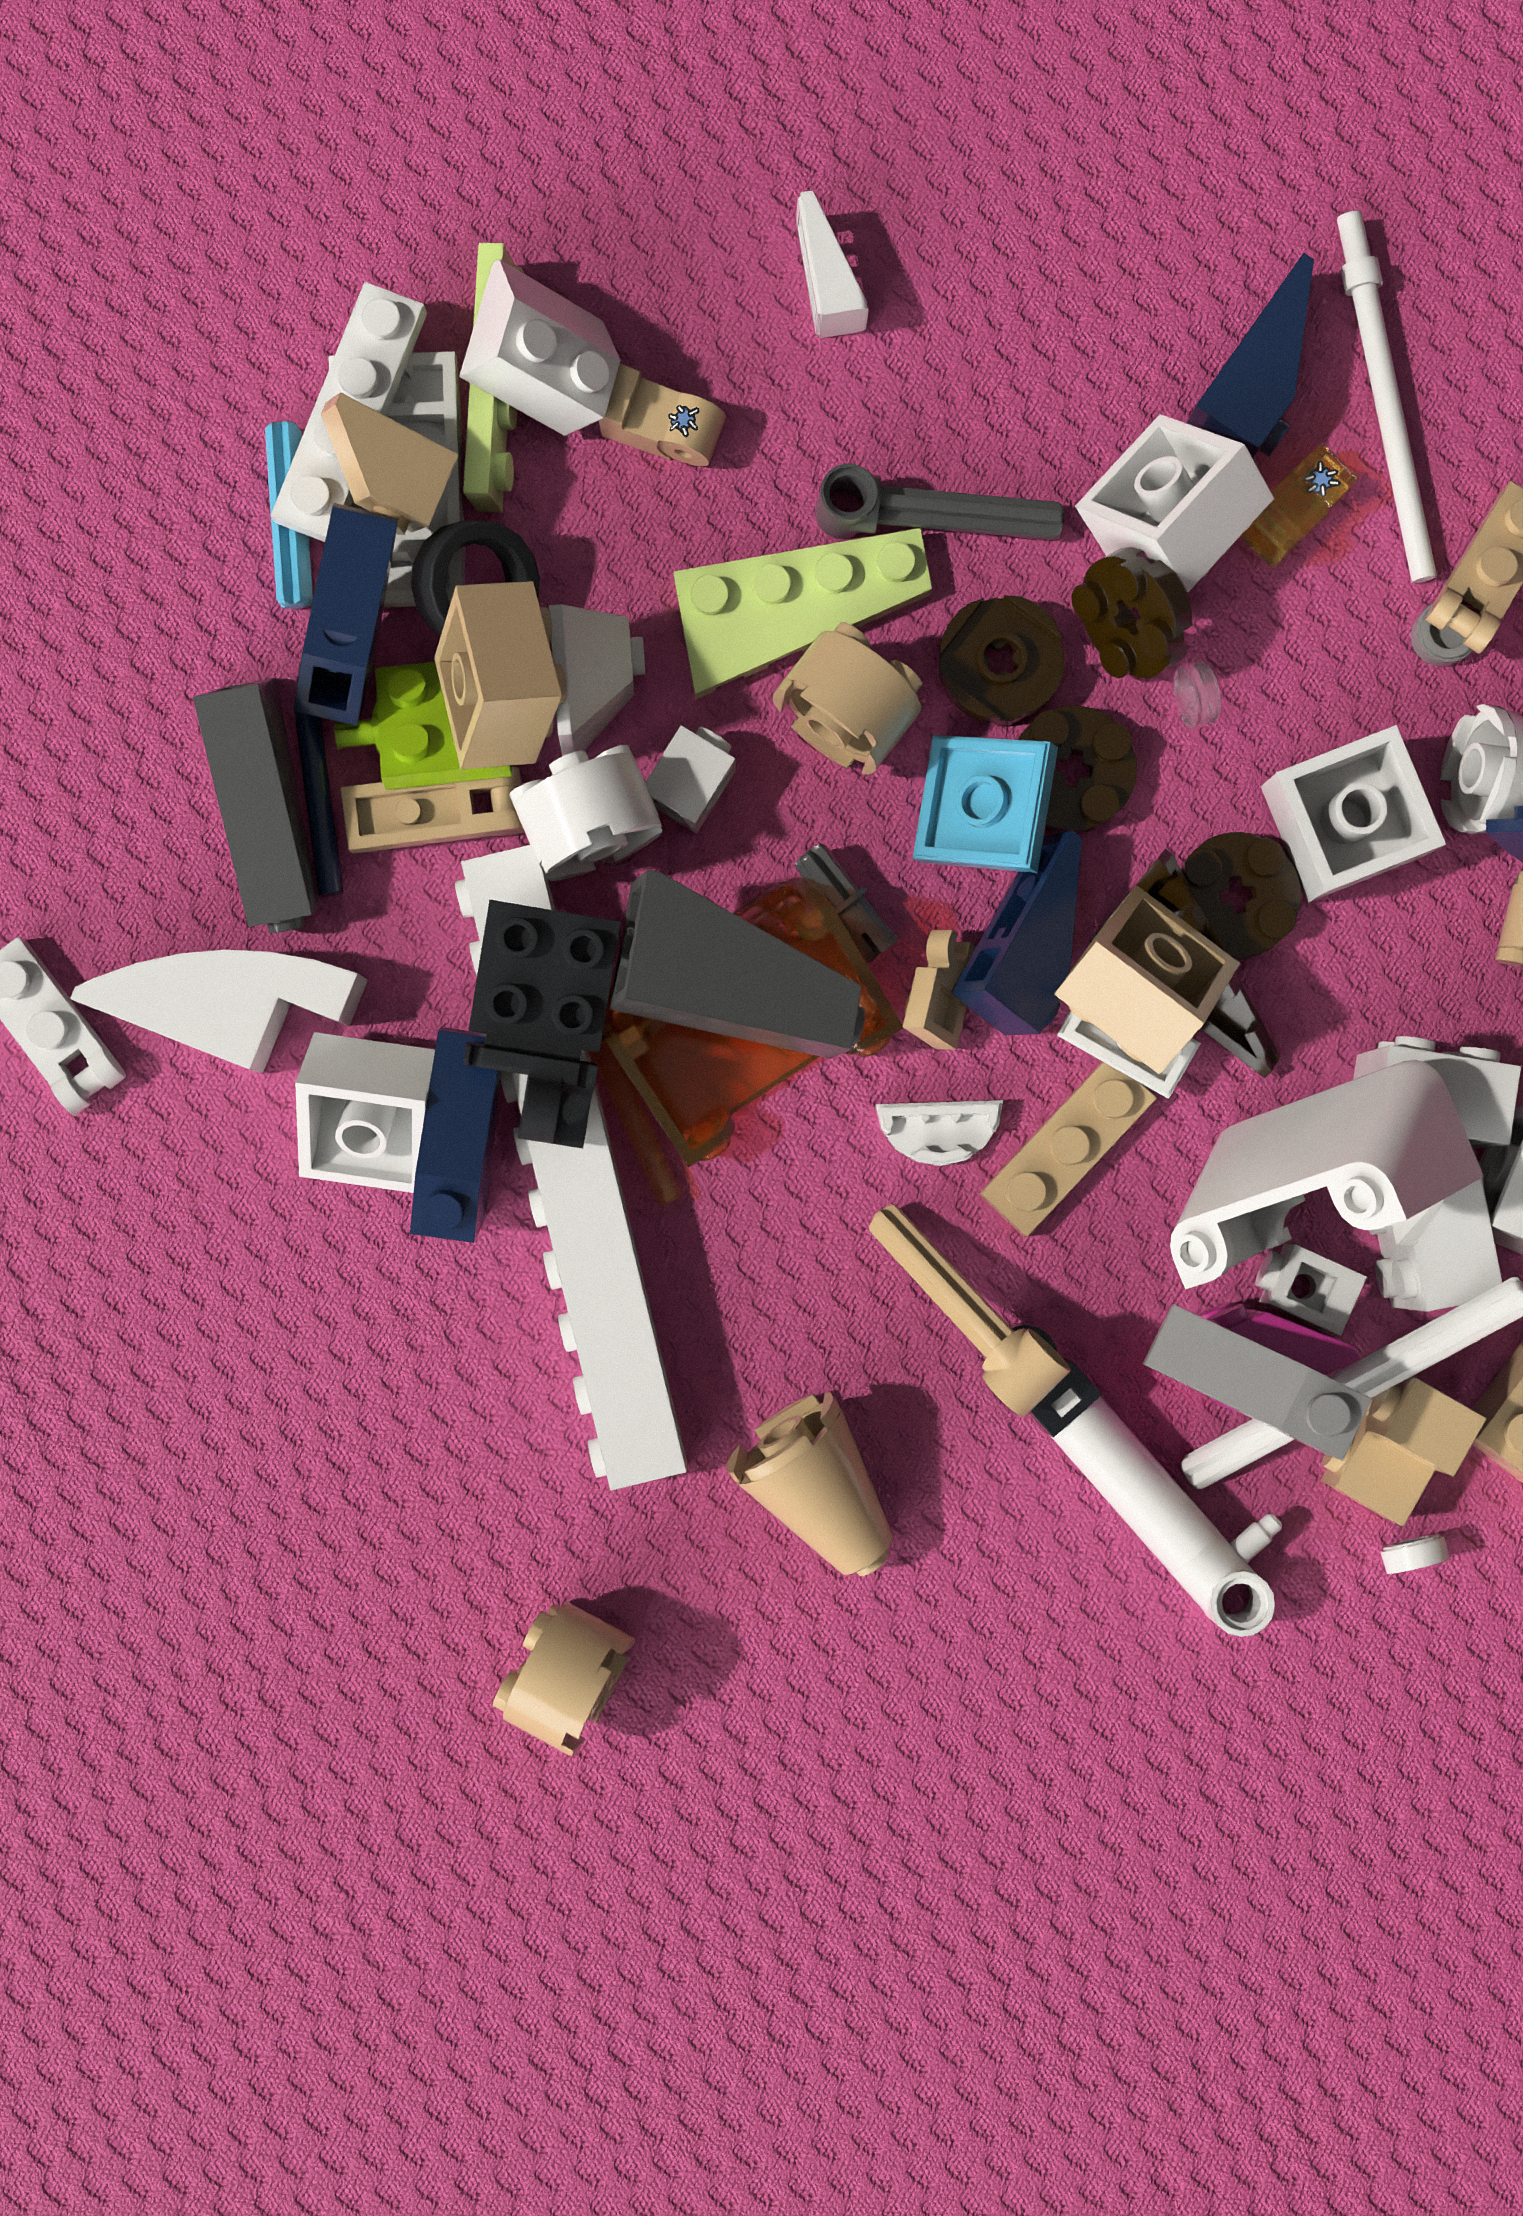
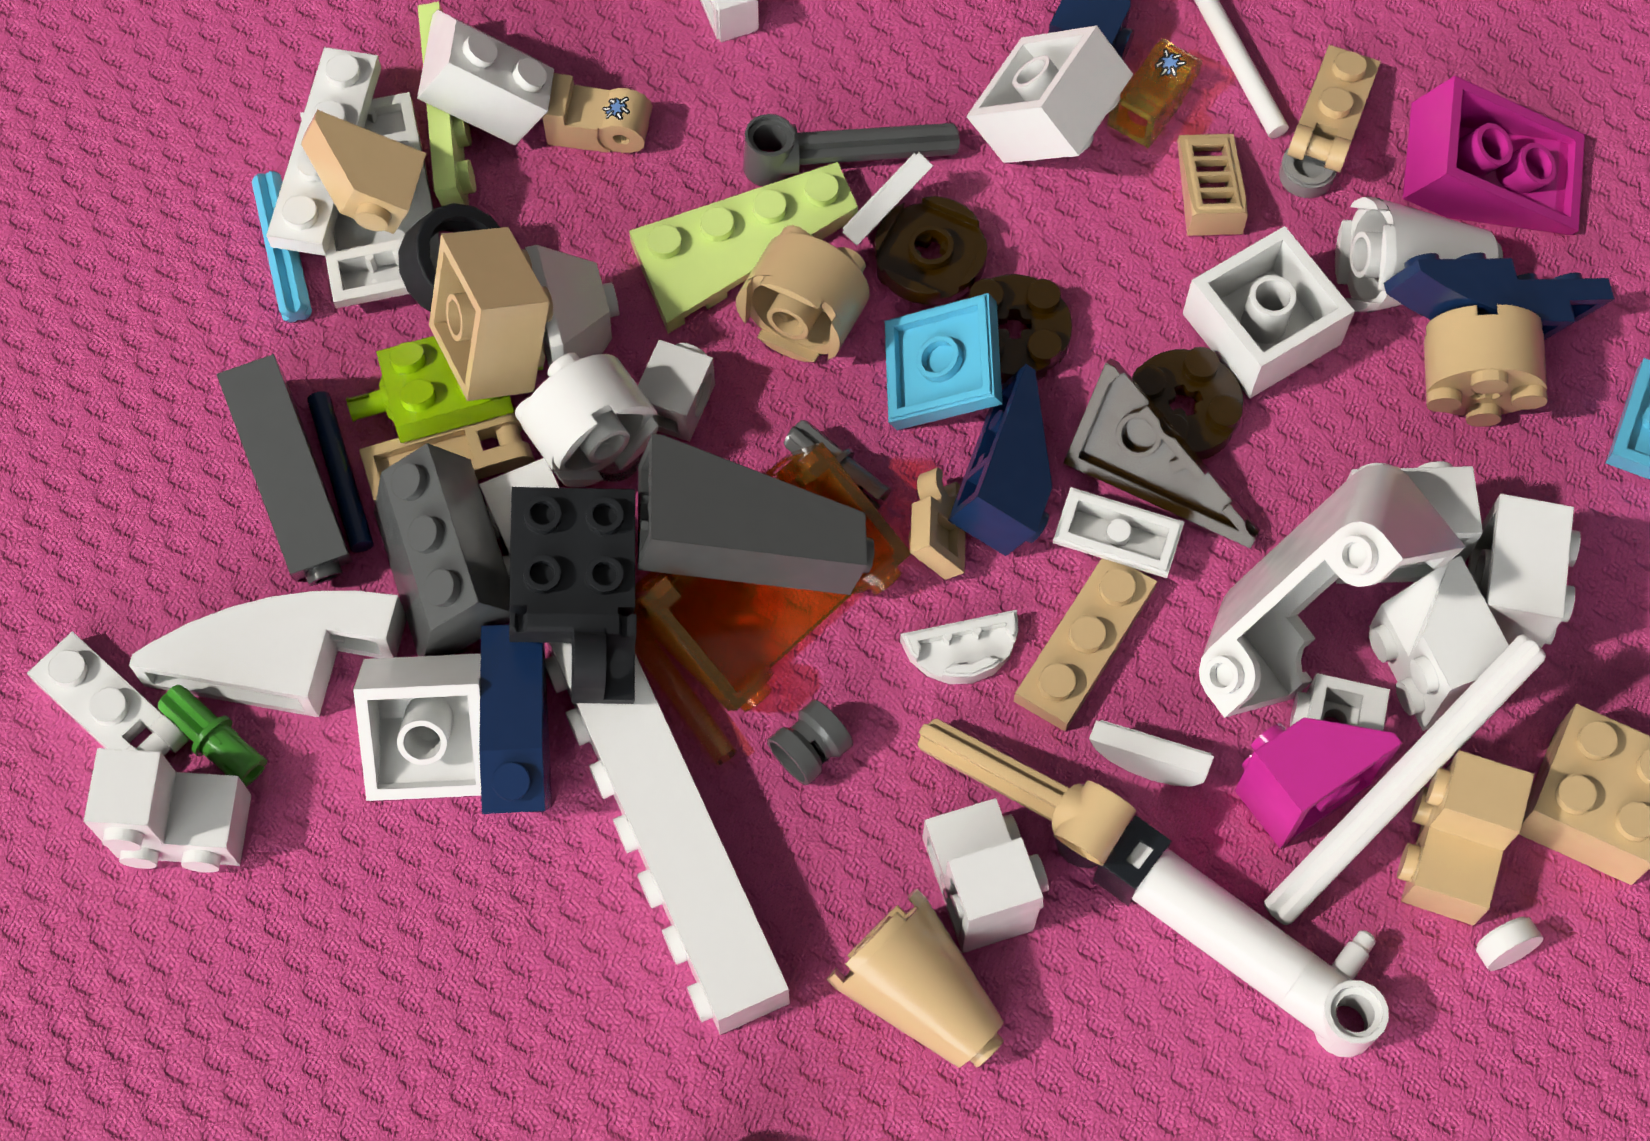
camera: 10 degrees left, 20 degrees down
(79, 1160) = (160, 814): none -> white brick
(149, 1080) = (212, 735): none -> bright green axle
(346, 615) = (345, 297): dark blue slope -> none
(413, 930) = (441, 550): none -> dark grey slope
(758, 1207) = (810, 742): none -> dark grey wheel
(903, 1386) = (985, 874): none -> white brick
(961, 593) = (886, 198): none -> white tile
(1105, 605) = (1011, 193): dark brown plate -> none
(1105, 1291) = (1150, 755): none -> white tile
(1147, 980) = (1119, 463): tan brick -> none
(1197, 694) = (1107, 247): clear tile -> none
(1258, 1382) = (1315, 771): light grey slope -> none
(1324, 678) = (1212, 217): none -> tan slope

